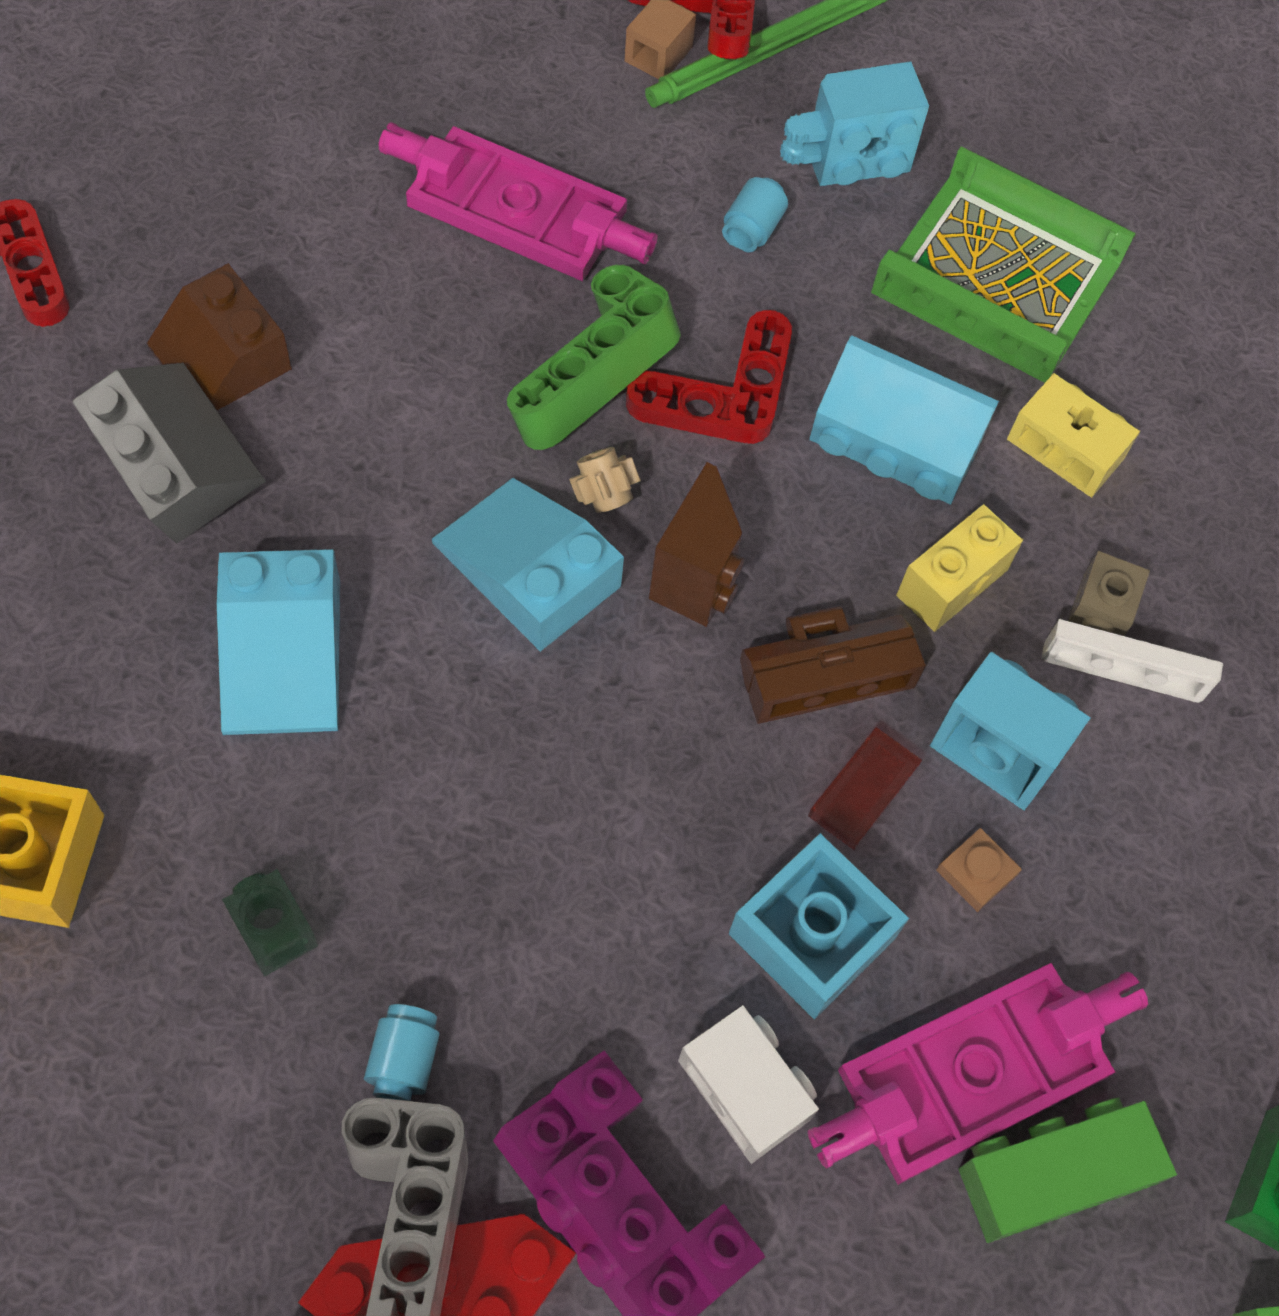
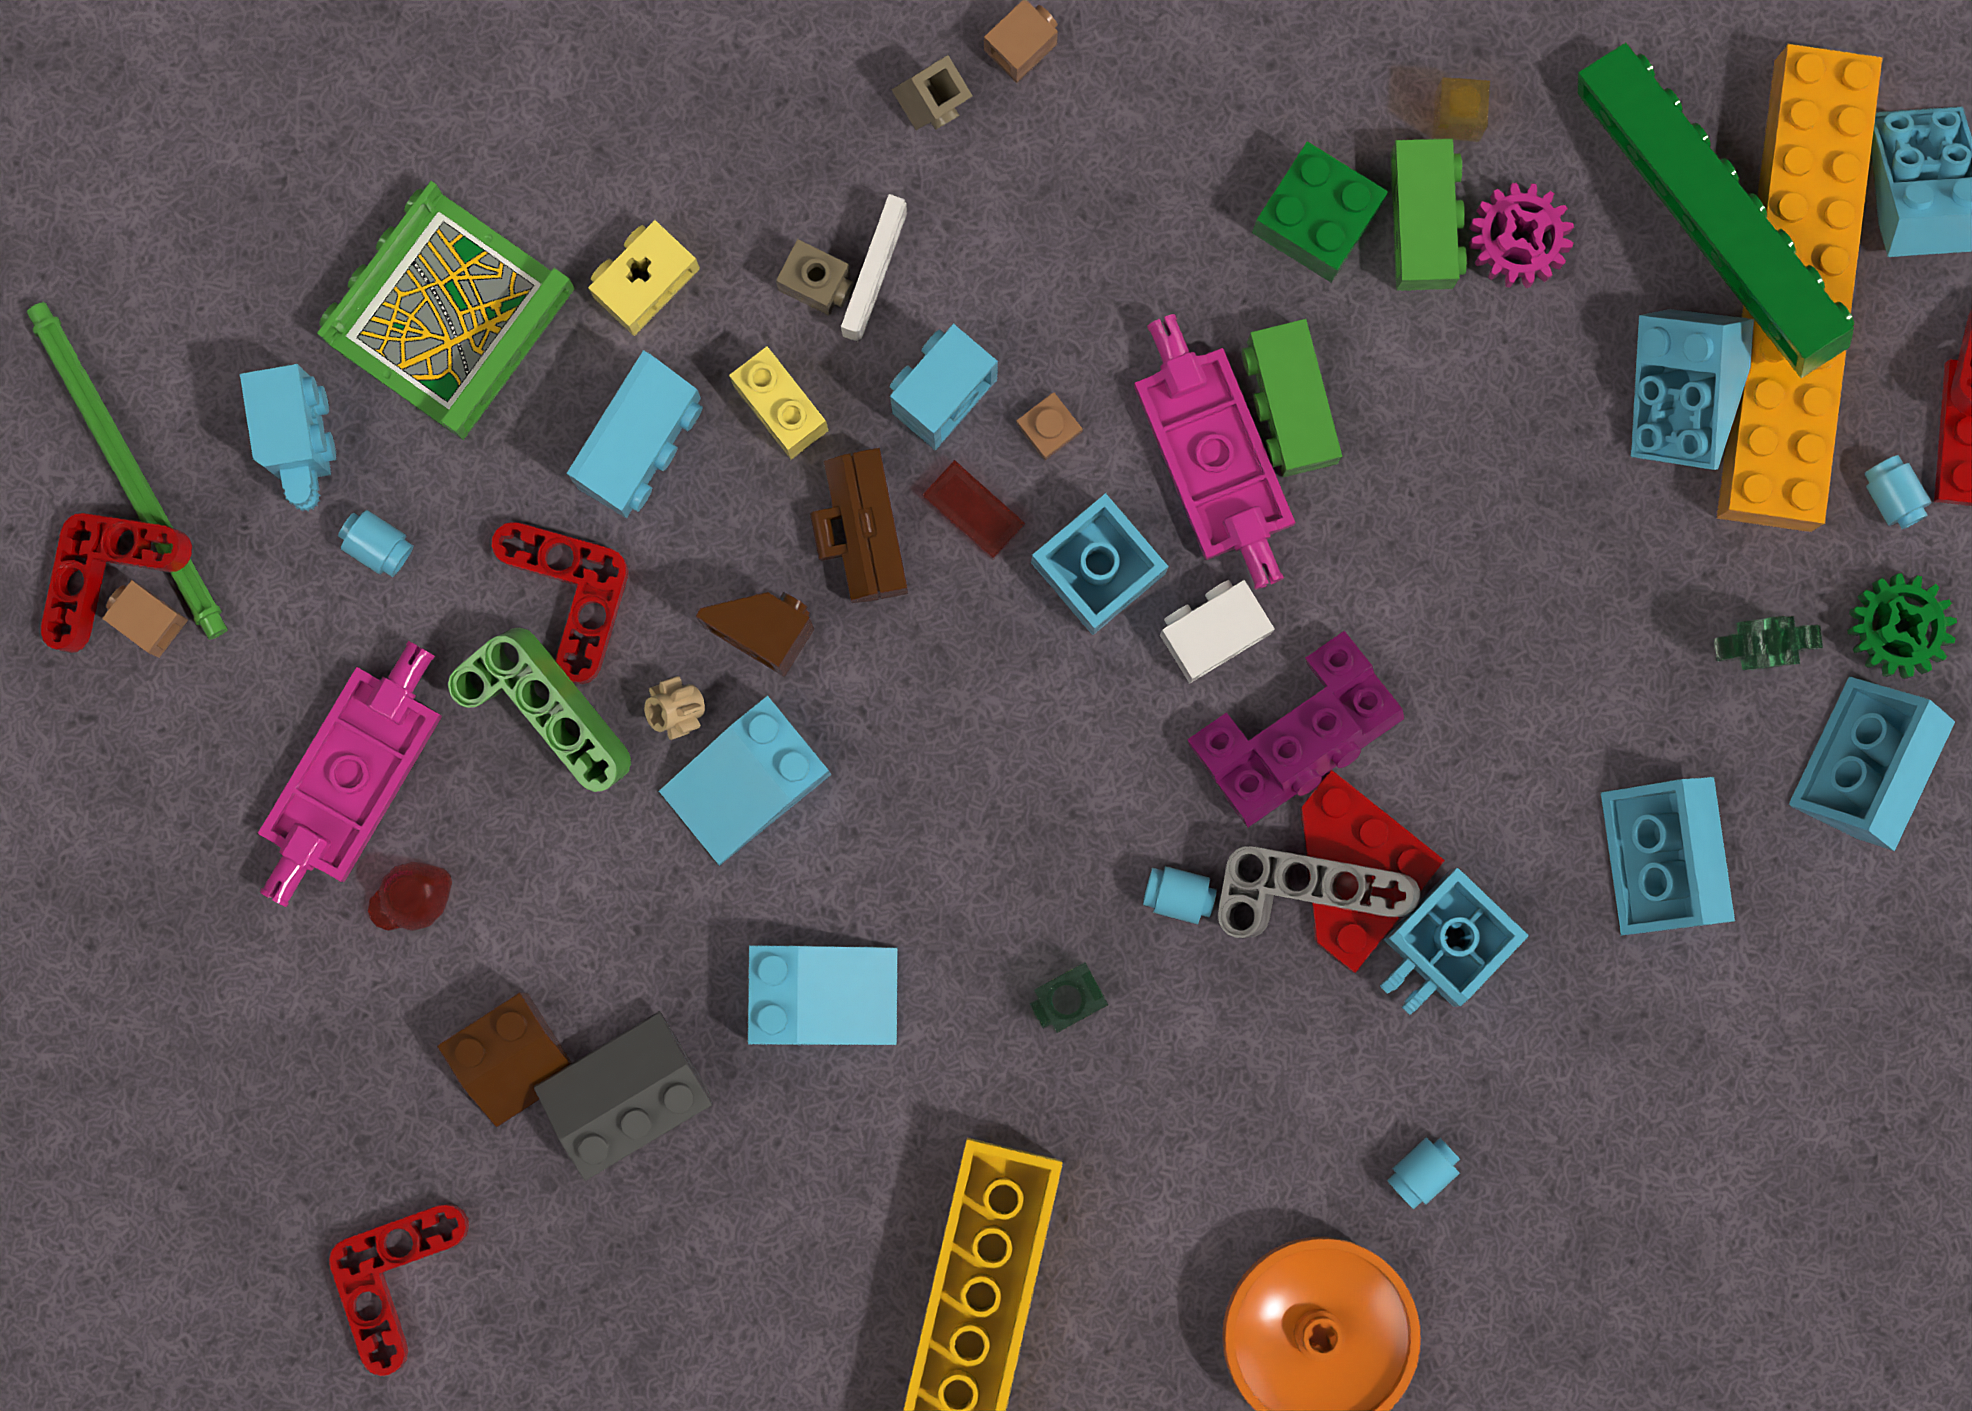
camera: 80 degrees left, 20 degrees up
(393, 260) = (410, 897): none -> clear red piece

